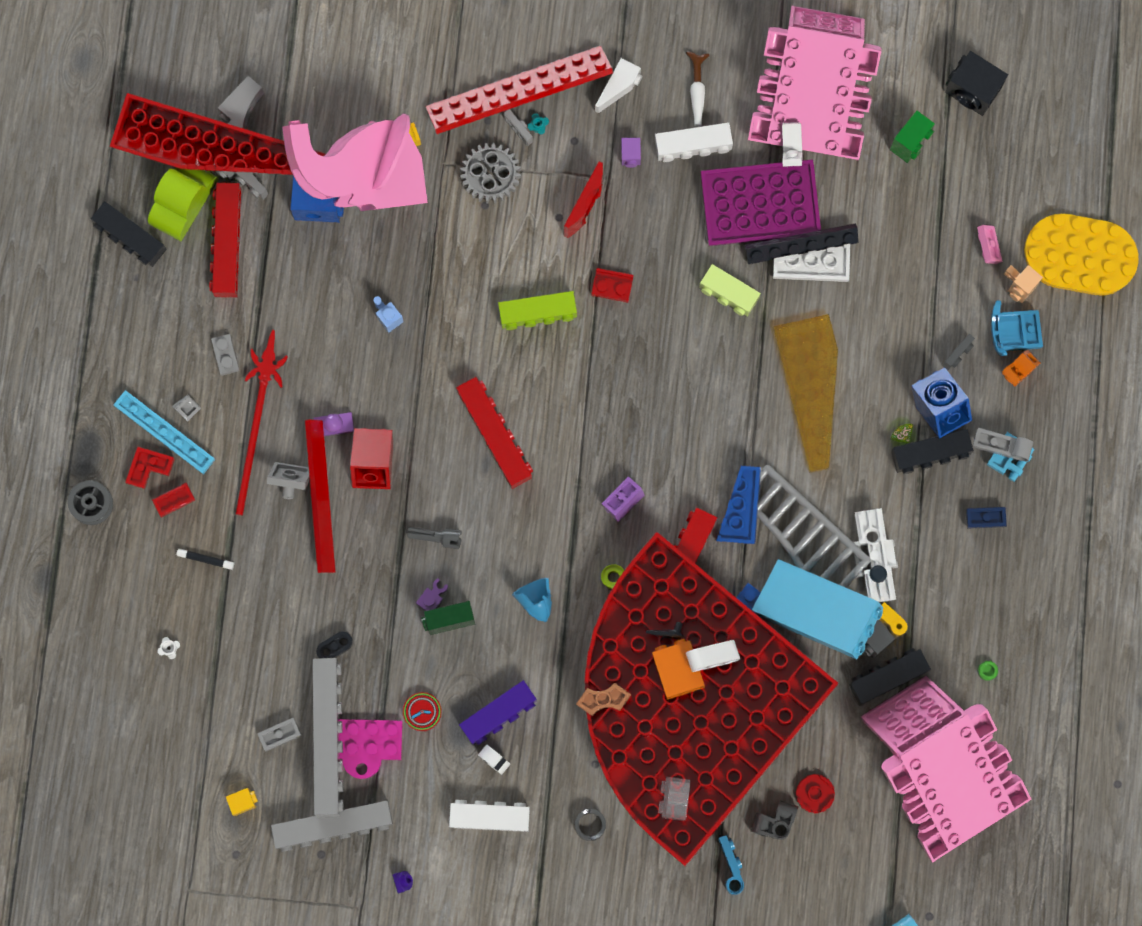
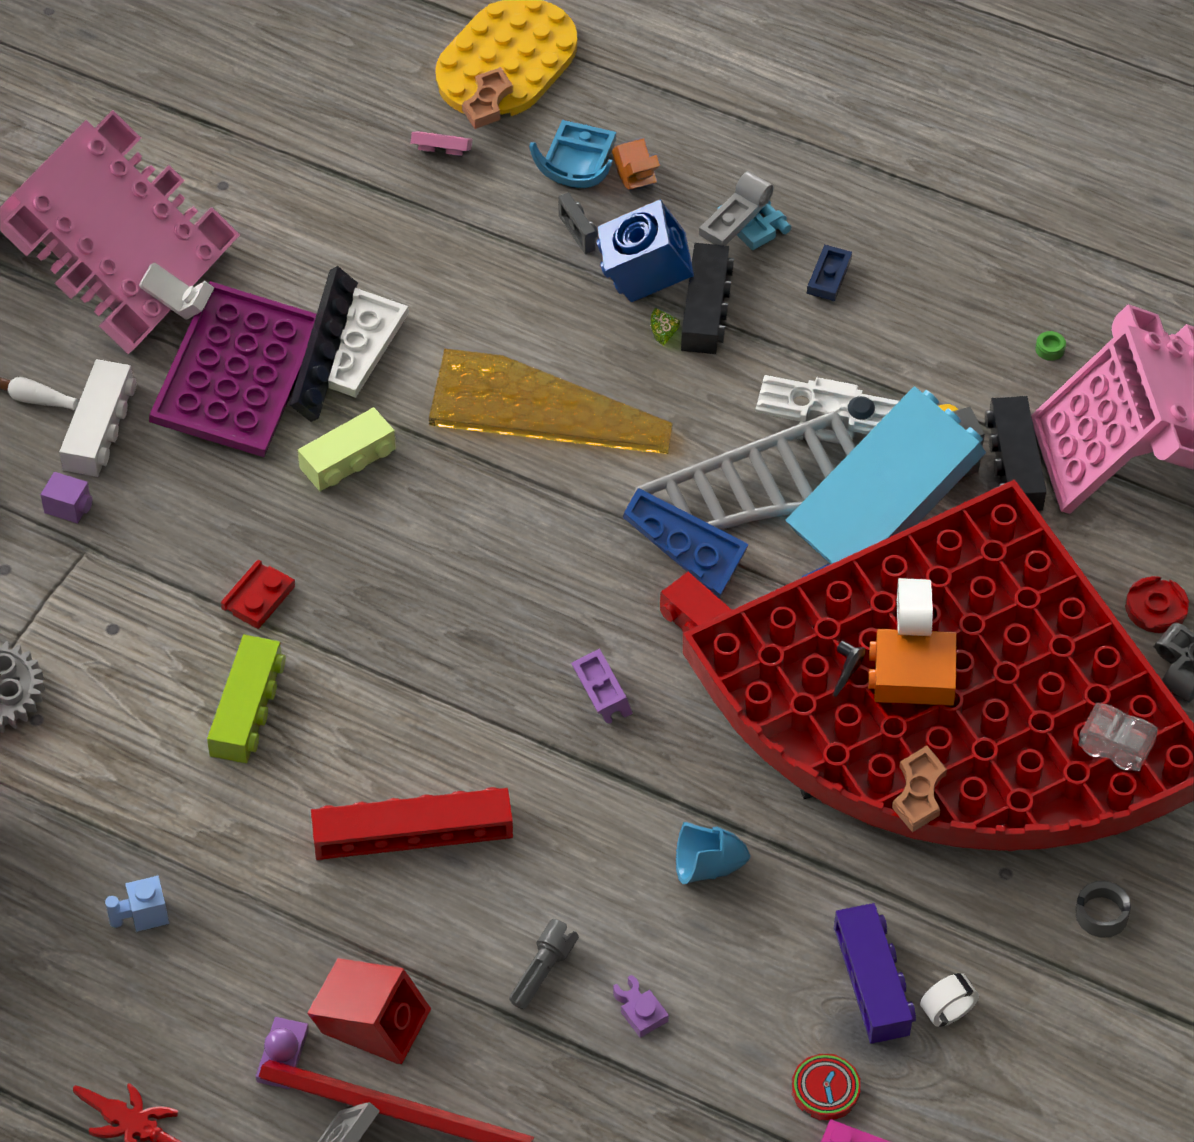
camera: 70 degrees left, 25 degrees down
(448, 618) = (690, 980): dark green brick -> none
(489, 816) = (1040, 1044): white brick -> none
(585, 202) = (108, 568): red slope -> none
(613, 568) = (714, 733): lime piece -> none
(908, 141) = (245, 163): green brick -> none
(975, 82) = (207, 73): black brick -> none
(1023, 283) = (518, 116): light nougat brick -> none
(1042, 257) = (483, 105): none -> nougat tile

